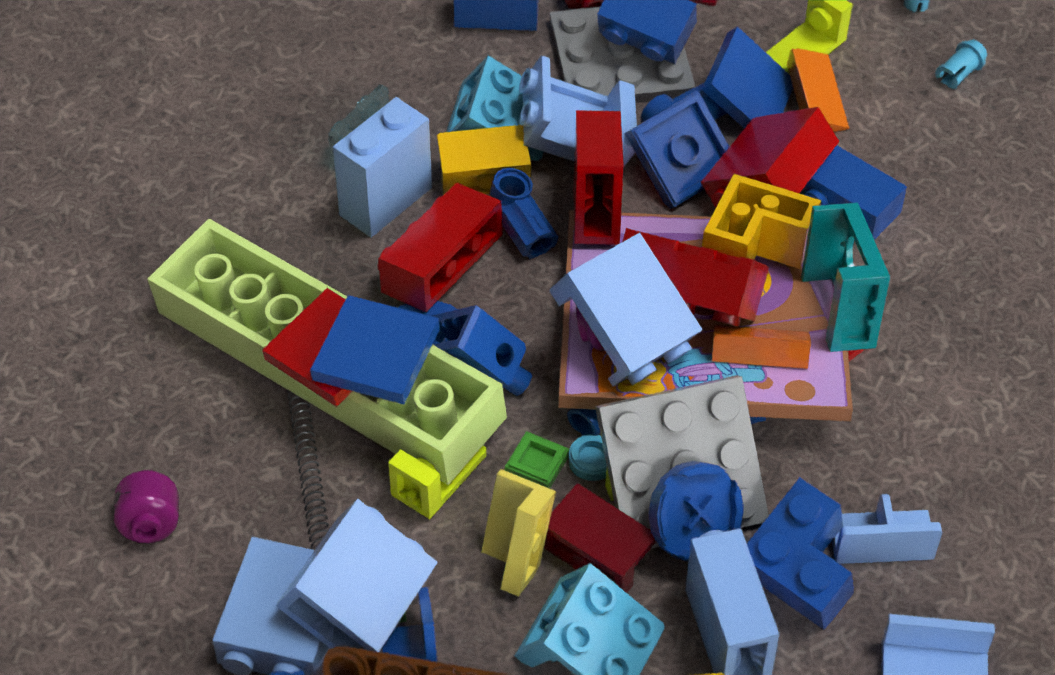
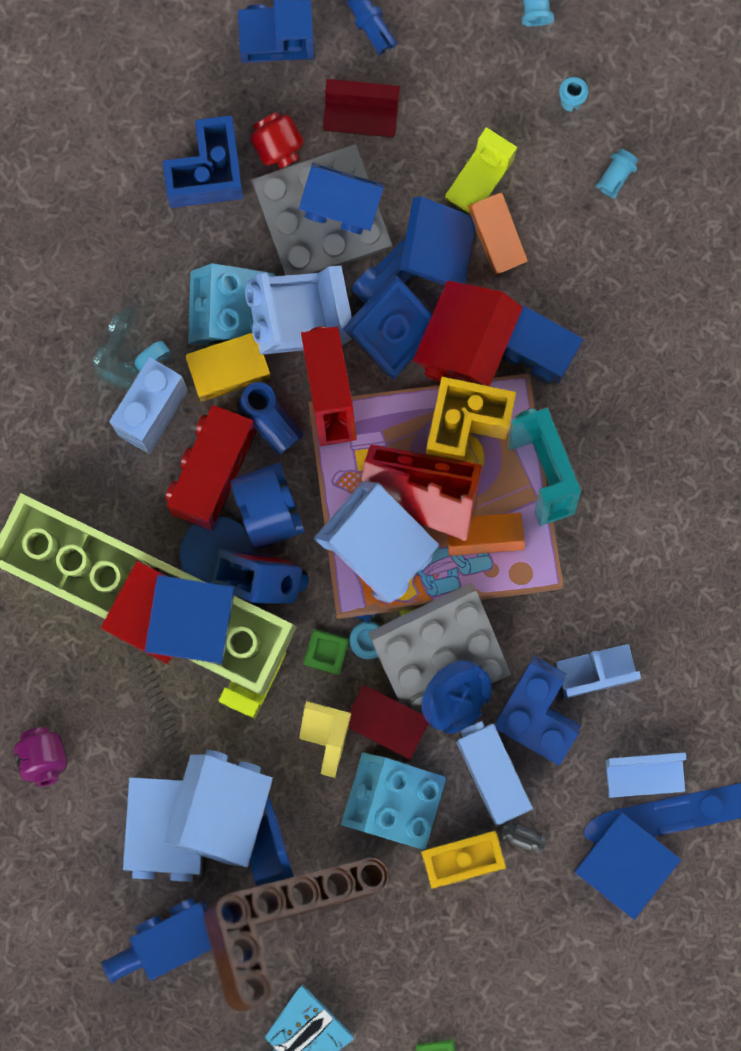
camera: 10 degrees left, 30 degrees up
(496, 283) = (266, 506): none -> blue brick

